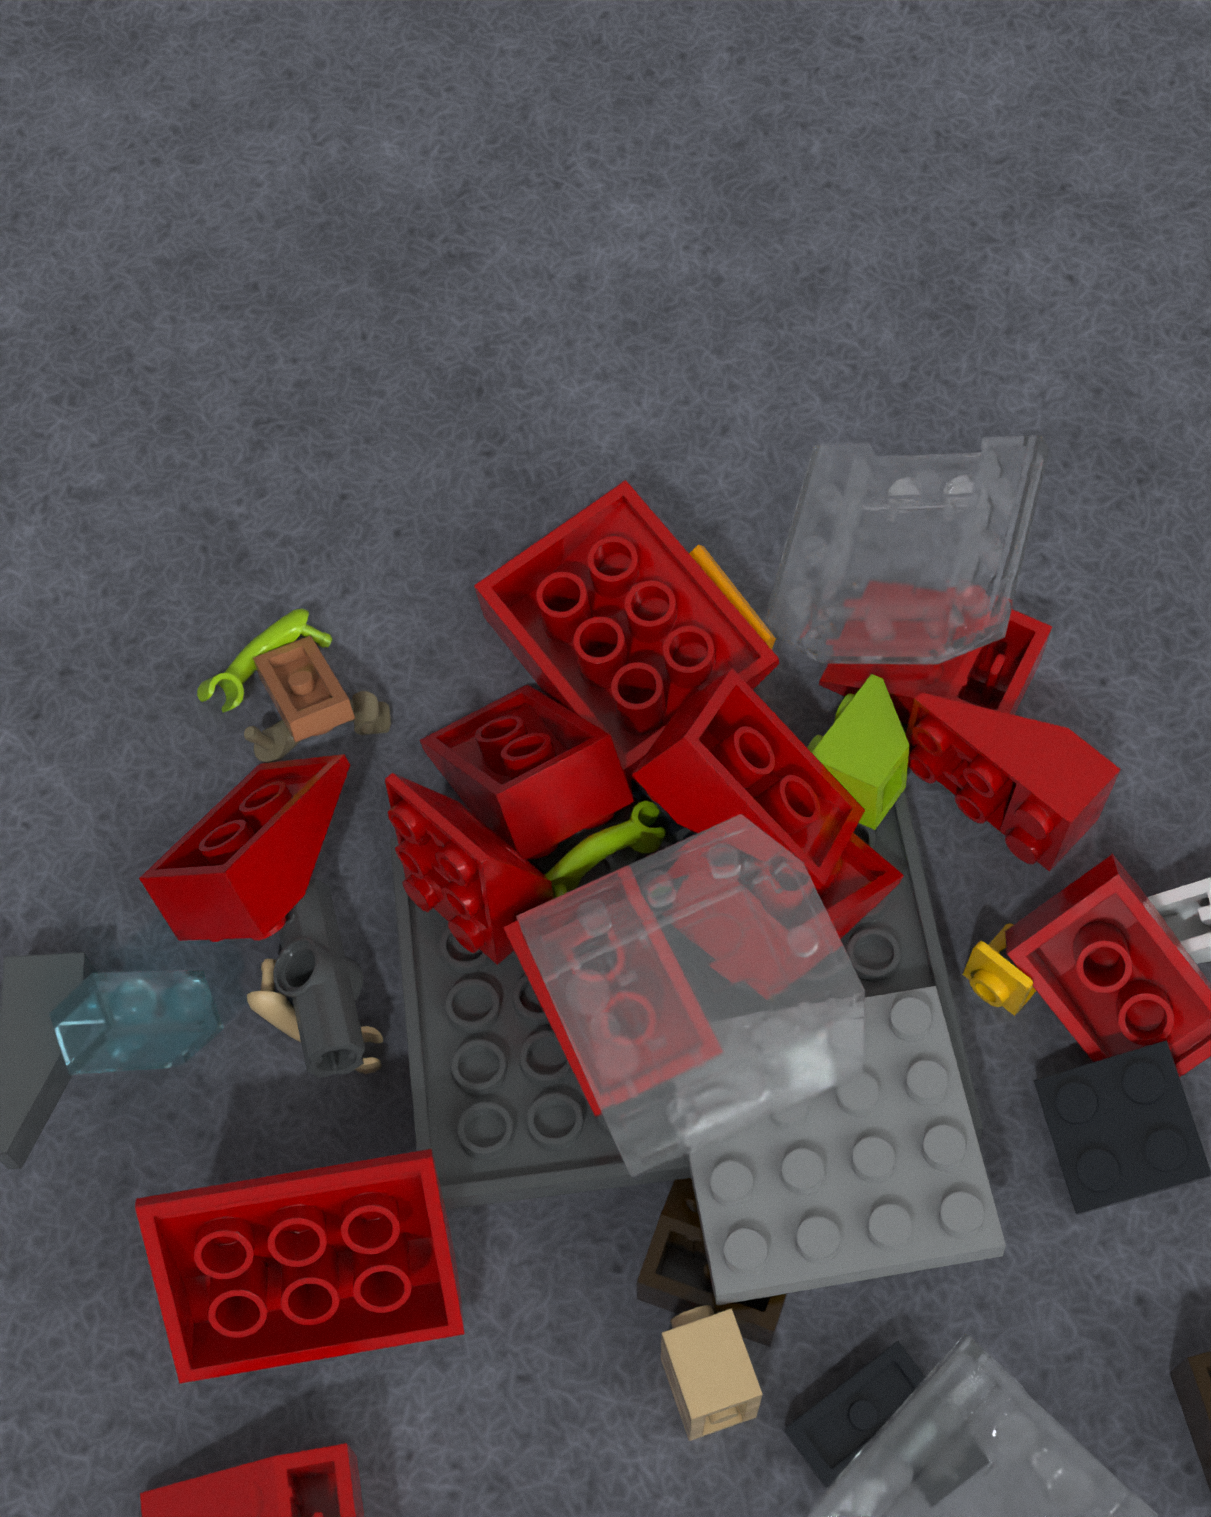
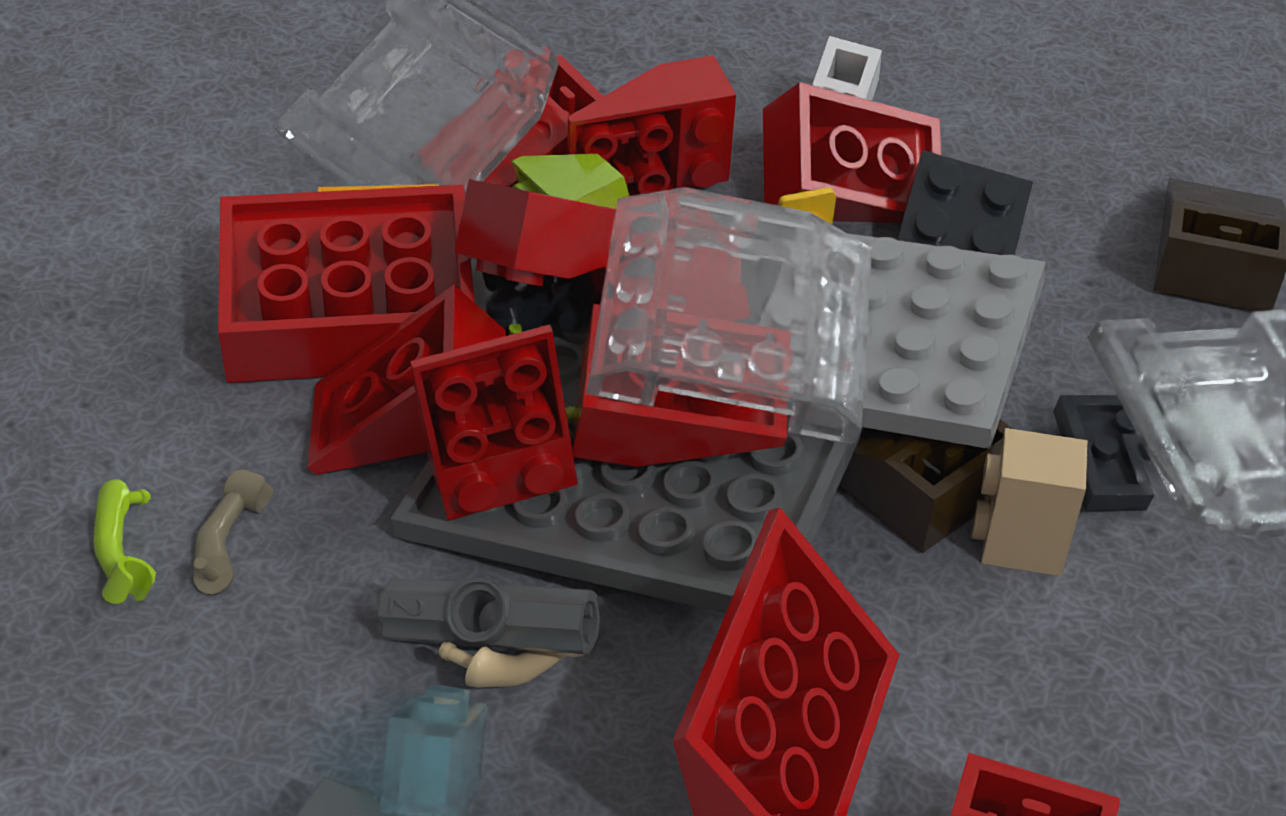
camera: 65 degrees left, 20 degrees down
(249, 853) = (328, 606): red slope -> none
(304, 689) = (190, 509): nougat plate -> none

